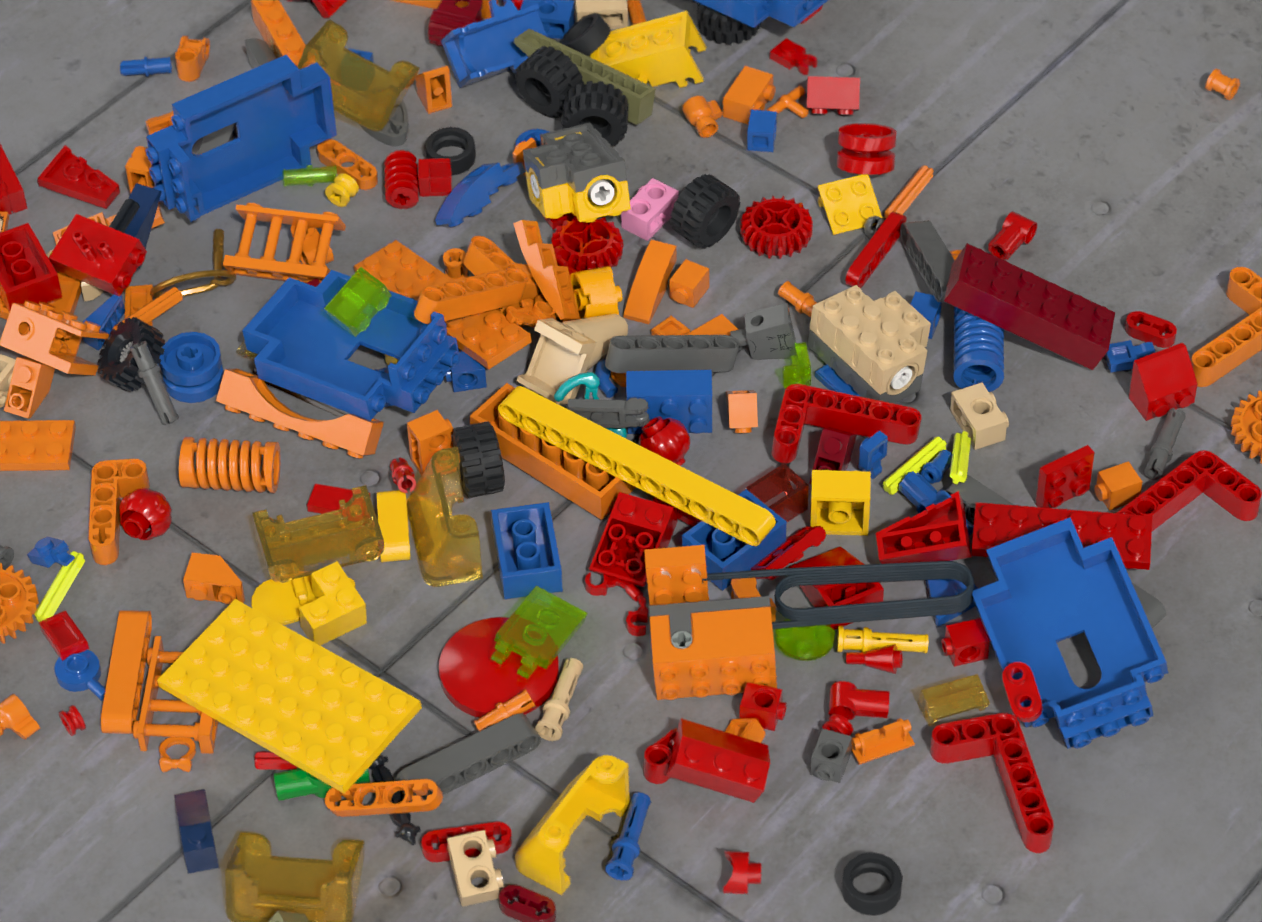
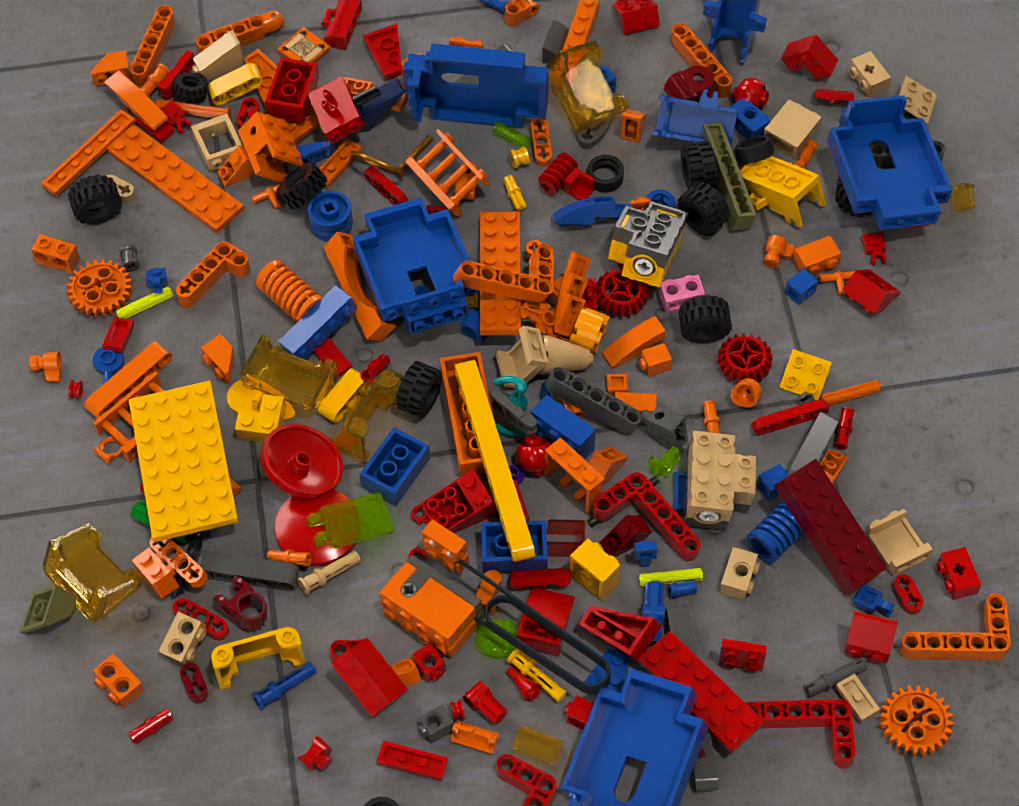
camera: 40 degrees right, 10 degrees up
(92, 391) = (270, 192): none -> orange piece
(145, 509) = (224, 291): red plant -> none
(150, 373) = (294, 206): dark grey pin -> none
(157, 306) = (341, 164): orange axle -> none
(196, 831) = (74, 502): dark blue slope -> none
(246, 305) = (384, 186): none -> red beam
(295, 469) = (318, 323): none -> brick
(358, 302) = (436, 241): clear neon green brick -> none
(371, 226) = (514, 192): none -> yellow axle
(379, 825) = (155, 572): none -> orange brick
(421, 610) = (301, 461): none -> red dish
(427, 437) = (405, 354): orange brick -> none
(515, 791) = (243, 599): none -> dark red piece
(729, 425) = (576, 469): none -> orange window
(813, 253) = (746, 393): none -> orange piece
(842, 807) = (412, 760): none -> red plate
(866, 148) = (846, 345): red wheel -> none
(939, 224) = (844, 428): none -> red pin
(960, 457) = (697, 593): neon yellow axle -> none
(1014, 232) = (889, 466): red piece -> none
(1022, 690) = (573, 772): red plate -> none
(1099, 287) = (897, 542): none -> tan panel
(1118, 485) = (775, 683): orange brick -> none
(1179, 278) = (958, 573): none -> red brick
(1191, 441) = (858, 697): none -> tan plate

